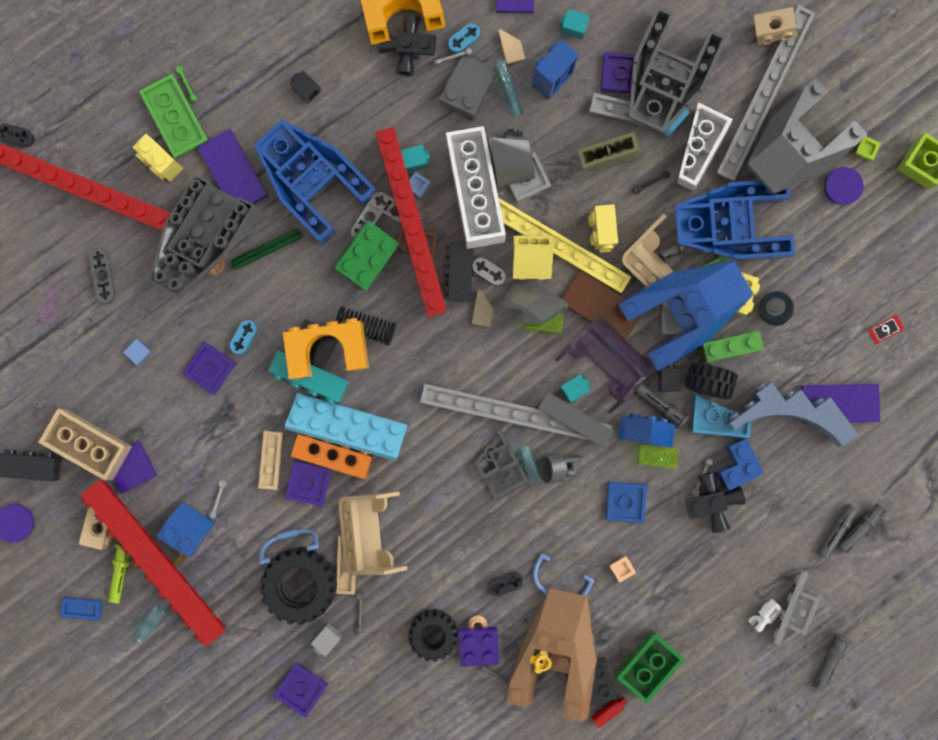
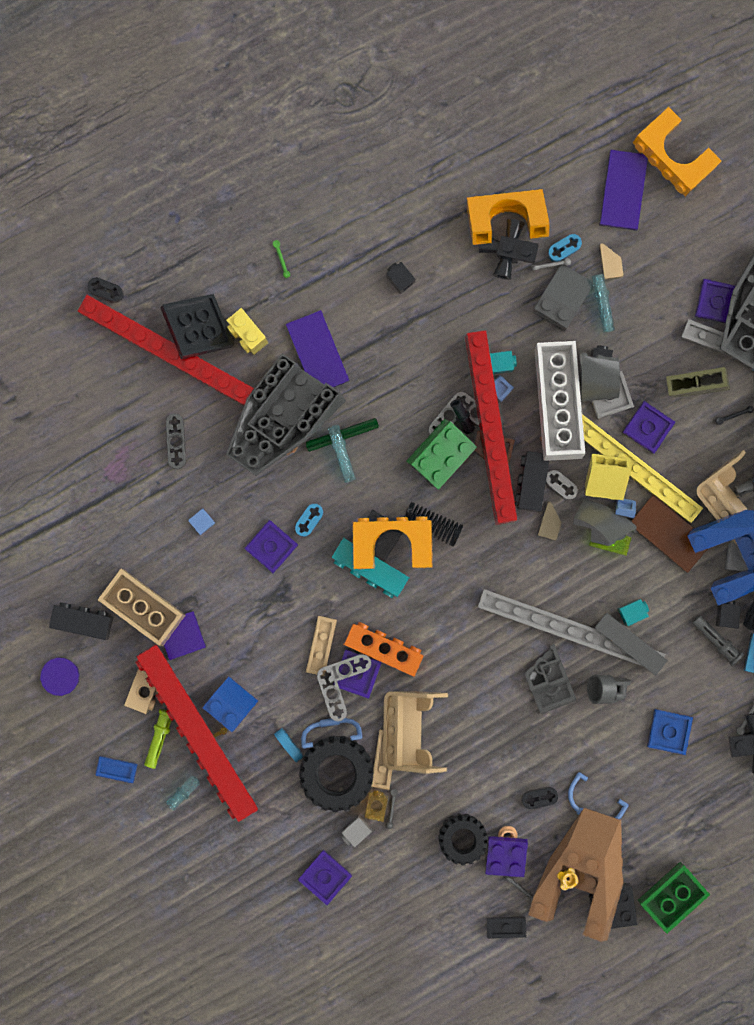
camera: 10 degrees right, 0 degrees up
(107, 158) = (197, 326): none -> black plate
(173, 116) = (266, 290): bright green plate -> none
(222, 484) = (257, 692): light grey hinge -> none
(249, 562) = (289, 745): none -> dark azure beam
(267, 267) = (338, 445): none -> clear light blue pin
(286, 489) = (336, 676): none -> light grey beam
(301, 167) = (388, 359): blue wedge -> none
(339, 620) = (379, 814): none -> clear yellow brick
(346, 427) = (401, 622): medium azure plate -> none
(382, 215) = (462, 416): none -> black axle
(487, 717) = (506, 927): none -> black plate
(529, 464) = (579, 682): clear light blue axle -> none
(554, 68) = (652, 292): blue brick -> none
(555, 286) = (625, 508): none -> medium blue tile
(568, 204) = (648, 427): none -> dark purple tile
(574, 24) = (677, 247): teal brick -> none
(604, 228) = (682, 457): light yellow brick -> none
(609, 712) = (628, 937): red cylinder -> none
(612, 356) = (675, 585): clear purple windscreen -> none
(622, 568) = (658, 797): light nougat plate -> none
(647, 430) = (702, 663): blue brick -> none
(658, 456) = (707, 690): clear neon green plate -> none

